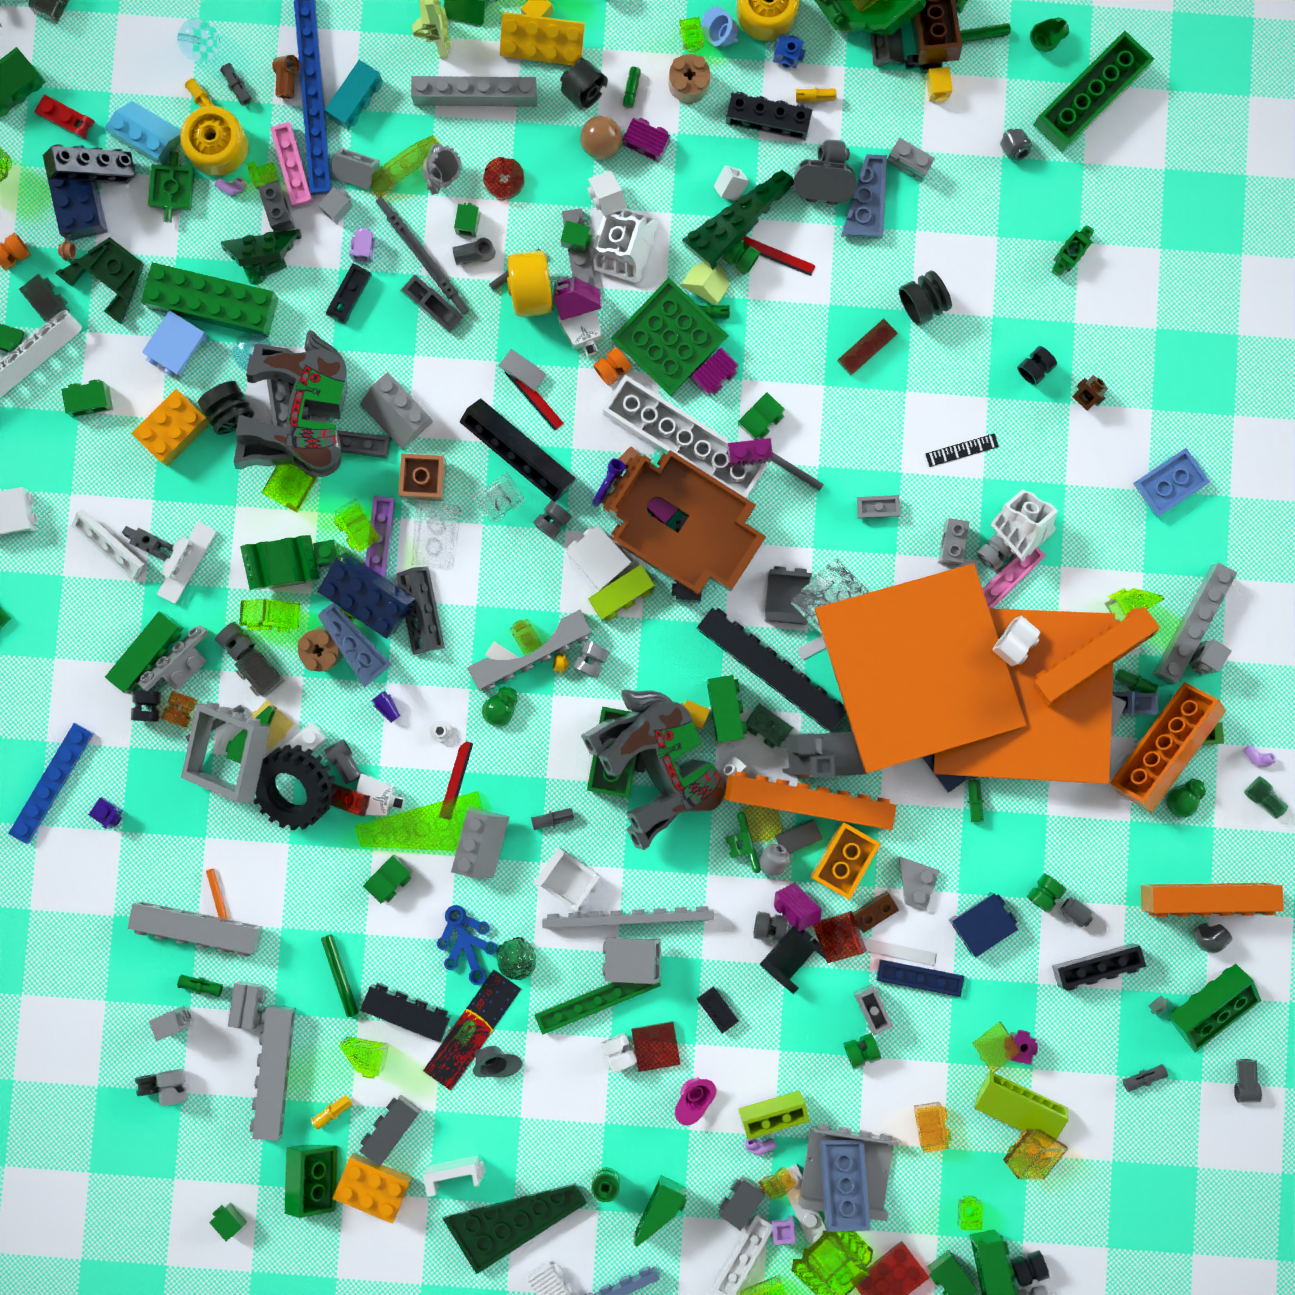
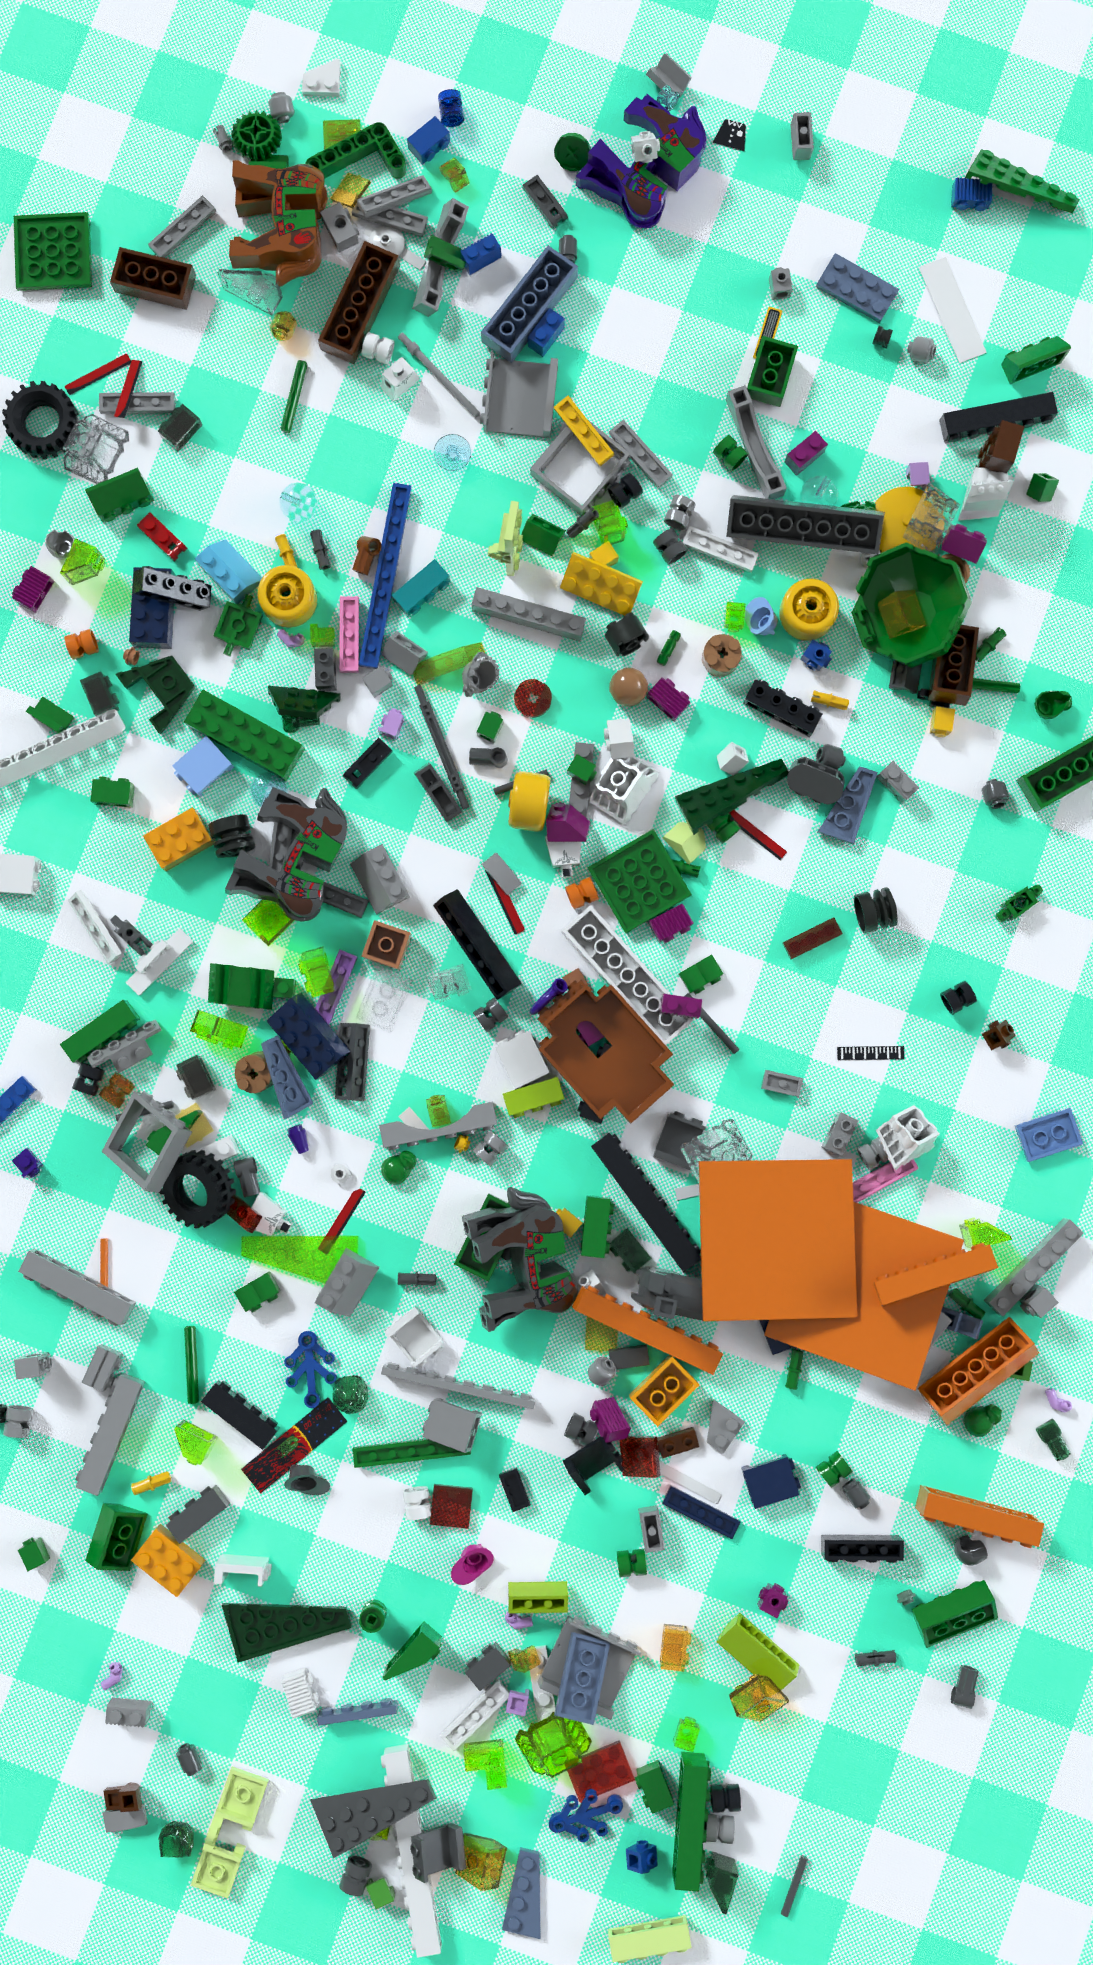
camera: 15 degrees right, 0 degrees up
(200, 985) = (67, 1338): green pin -> none
(229, 636) = (179, 1038): dark grey wheel -> none
(747, 841) = (582, 1349): green piece -> none
(996, 1047) = (751, 1593): piece -> none
(1016, 641) = (869, 1240): white brick -> none

